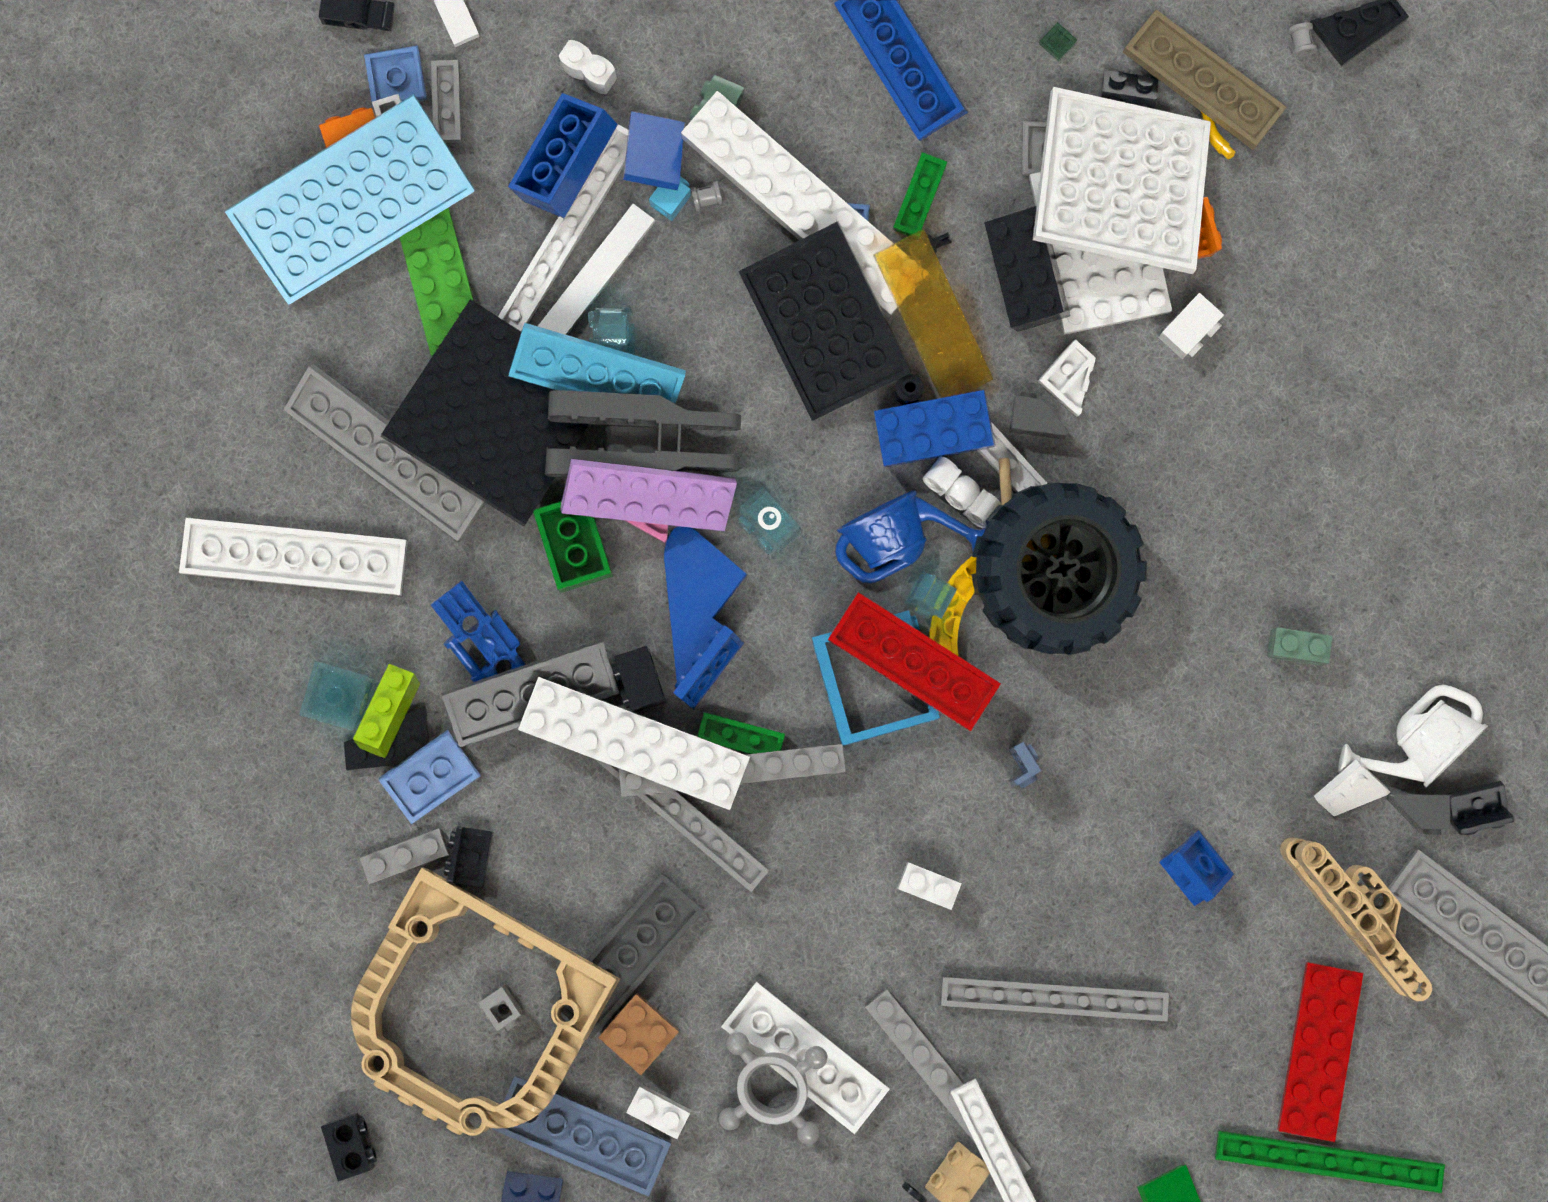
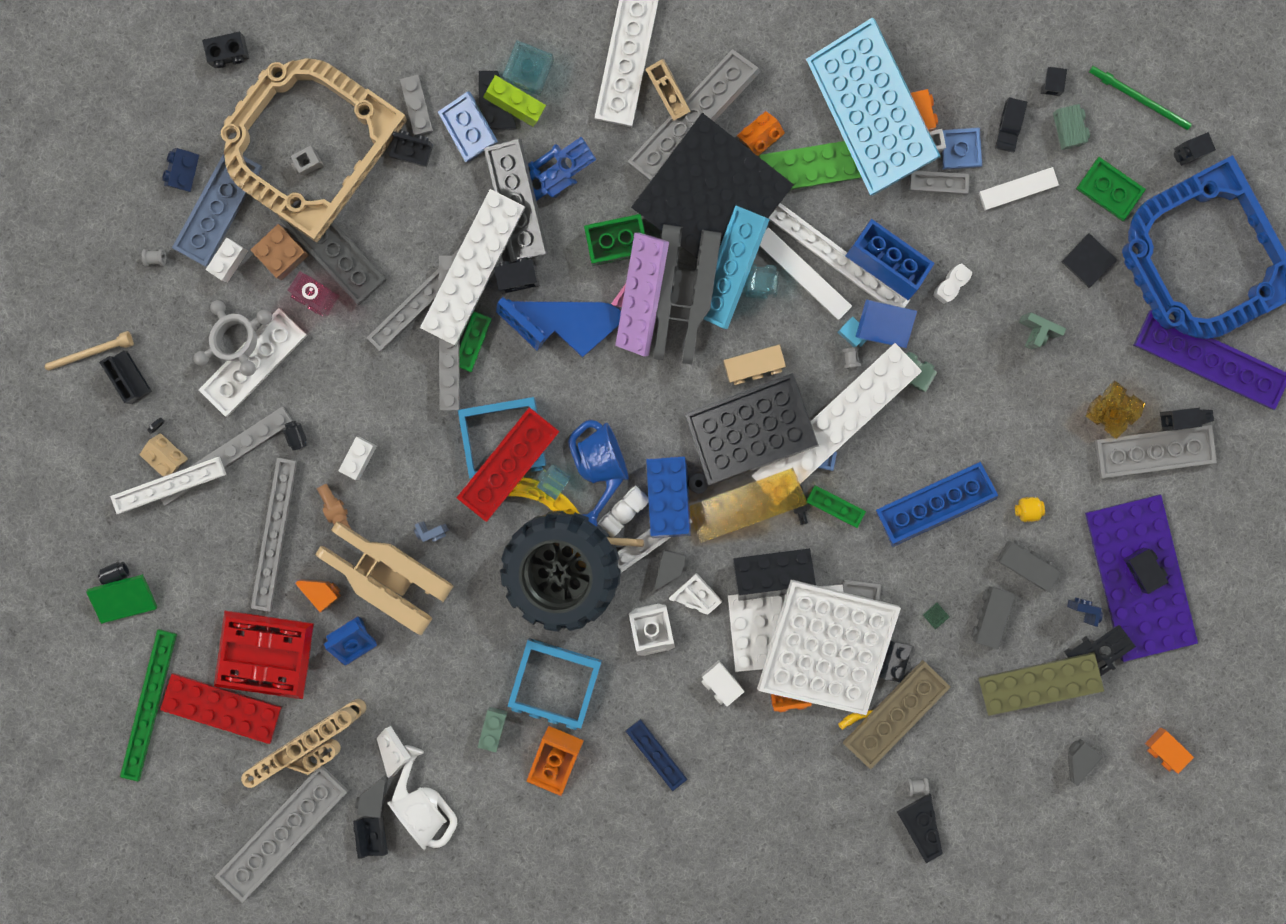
camera: 90 degrees right, 5 degrees up
(349, 492) = (668, 89): none -> tan slope
(399, 355) = (761, 133): none -> orange bracket
(695, 975) = (309, 291): none -> clear pink brick
(731, 330) = (754, 364): none -> tan brick
(768, 522) = (616, 375): clear light blue brick -> none
(905, 982) = (294, 435): none -> black brick
(1009, 911) = (333, 507): none -> medium nougat pin
(1084, 821) = (391, 569): none -> tan beam
(1126, 434) = (651, 629): none -> white slope
(1132, 921) = (320, 593): none -> orange slope
(1177, 556) = (563, 654): none -> dark azure window
(1233, 994) = (263, 655): none -> red piece
(1305, 410) = (656, 754): none -> dark blue tile
(1333, 552) = (554, 760): none -> orange slope

